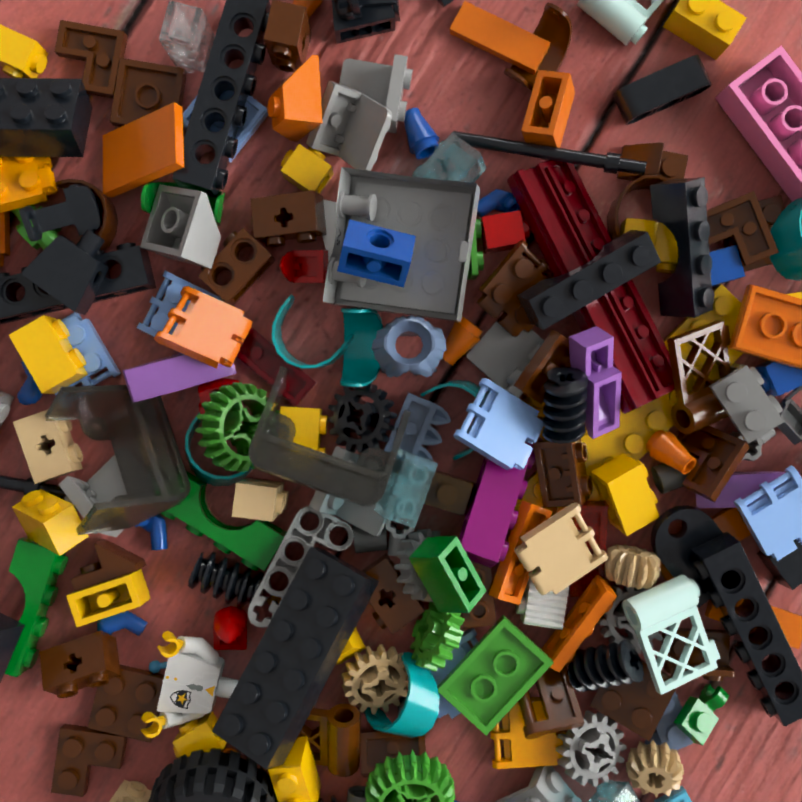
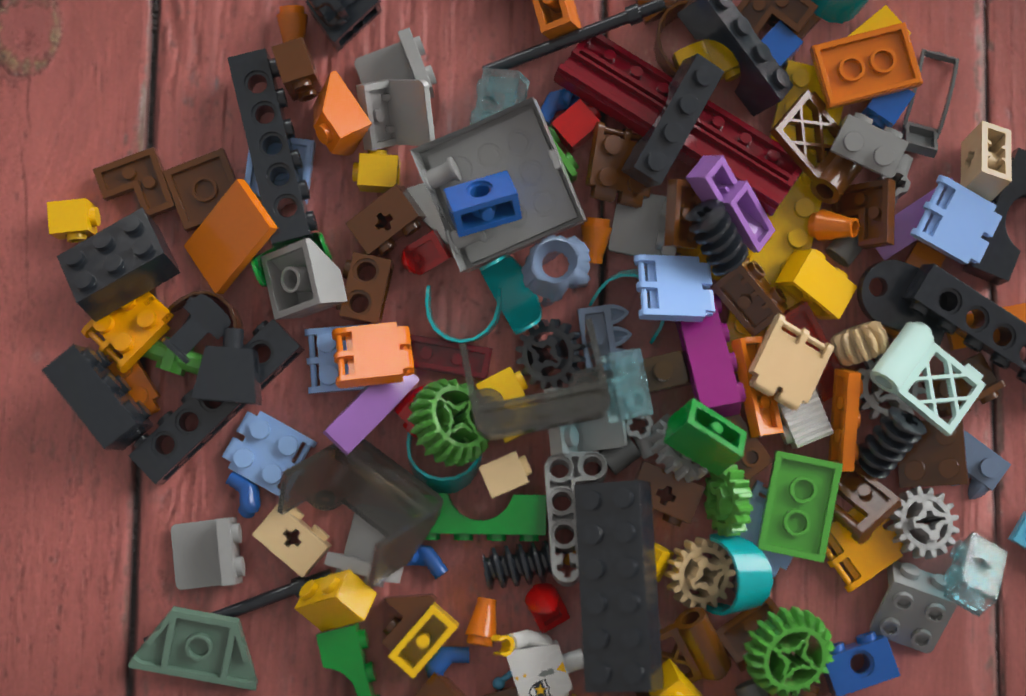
camera: 30 degrees left, 5 degrees down
(49, 354) = (251, 457): yellow brick -> none
(169, 611) = (482, 623): none -> orange cone
(186, 36) = (212, 120): clear brick -> none
(420, 135) = (456, 86): blue cone -> none
(654, 768) = (988, 507): tan gear -> none
(697, 714) = (997, 440): green plate -> none

